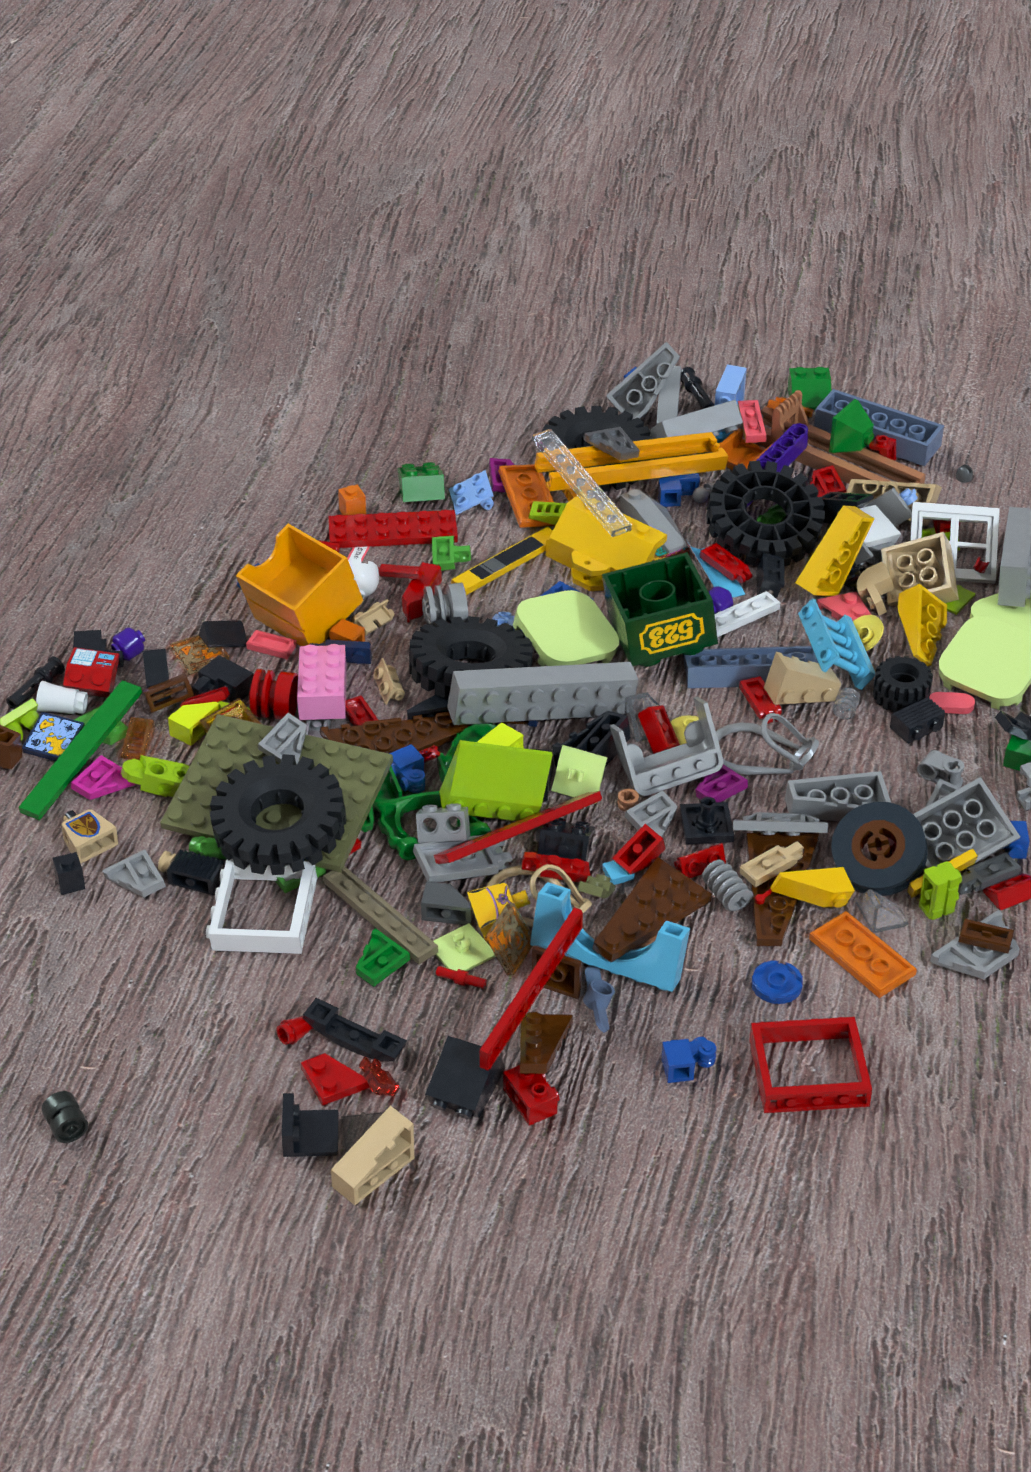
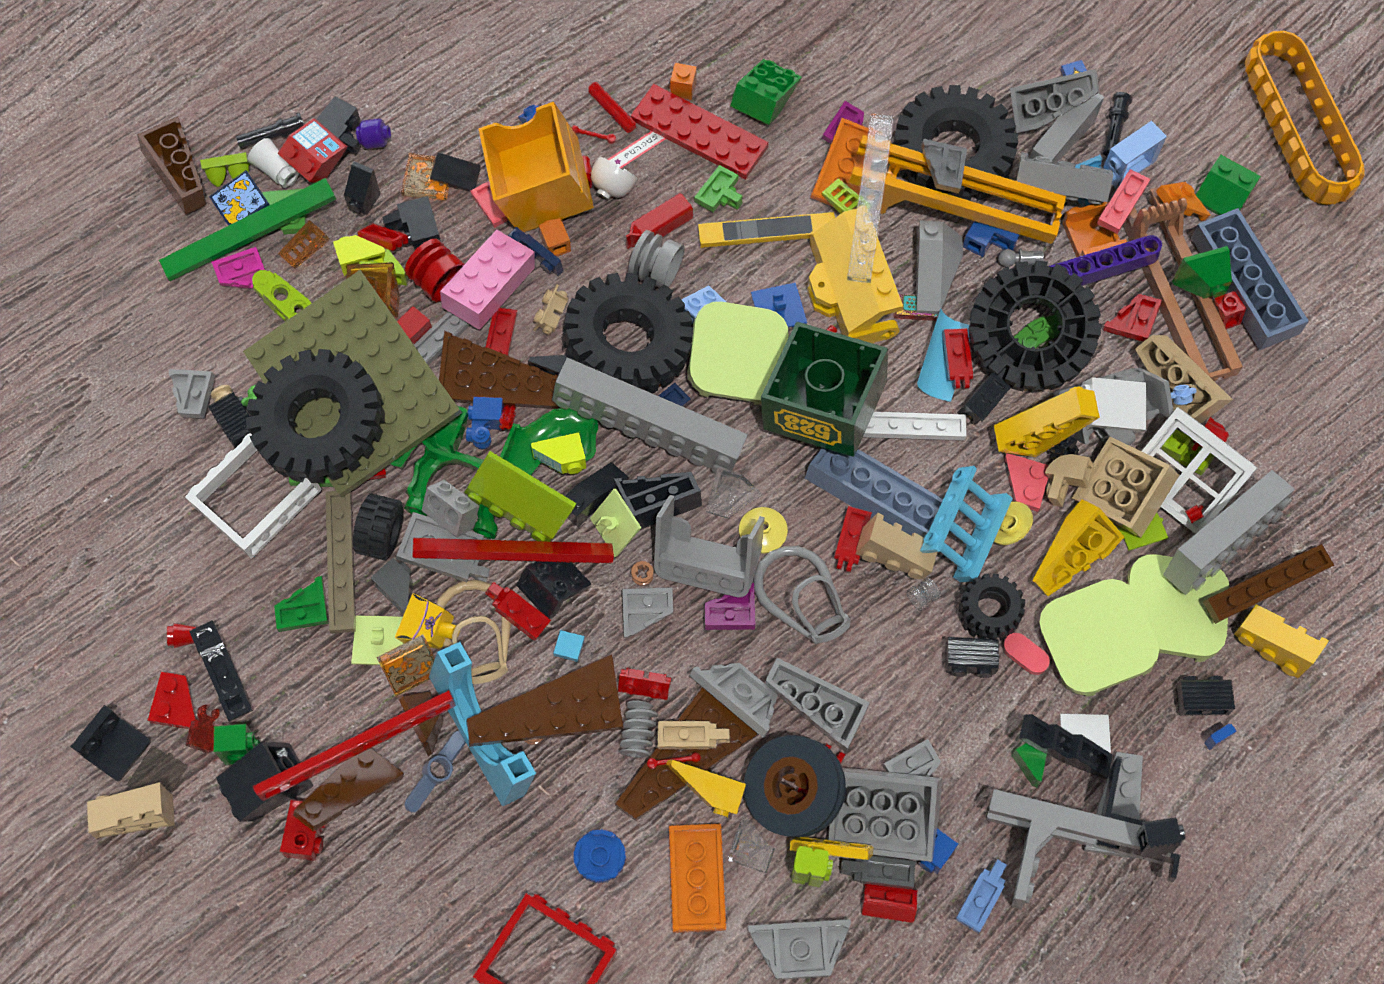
camera: 35 degrees right, 25 degrees up
(68, 873) = (138, 357): black brick -> none
(88, 834) = (184, 324): tan torso -> none
(166, 684) = (358, 208): reddish brown tile -> none
(285, 738) = (380, 342): light grey wing -> none
(377, 612) = (585, 228): tan hinge -> none
(396, 866) = (377, 526): none -> black tyre
(401, 571) = (655, 191): red axle -> none
(418, 1061) = (233, 742): none -> green brick
(461, 977) = (351, 671): red bar -> none
(471, 493) = (800, 132): light blue hinge -> none
(597, 886) = (528, 657): olive slope -> none
(640, 850) = (595, 642): red slope -> none
(658, 728) = (728, 516): red slope -> none
(681, 1055) = (448, 880): blue brick -> none
(706, 822) = (681, 631): black plate -> none
(721, 598) = (909, 398): dark purple head -> none
(821, 328) = (1299, 57): none -> light orange piece
(835, 500) = (1116, 359): black slope -> none
(941, 766) = (942, 723): light grey piece -> none
(964, 473) = (1287, 386): dark grey hinge -> none
(986, 936) = (823, 961): reddish brown tile -> none

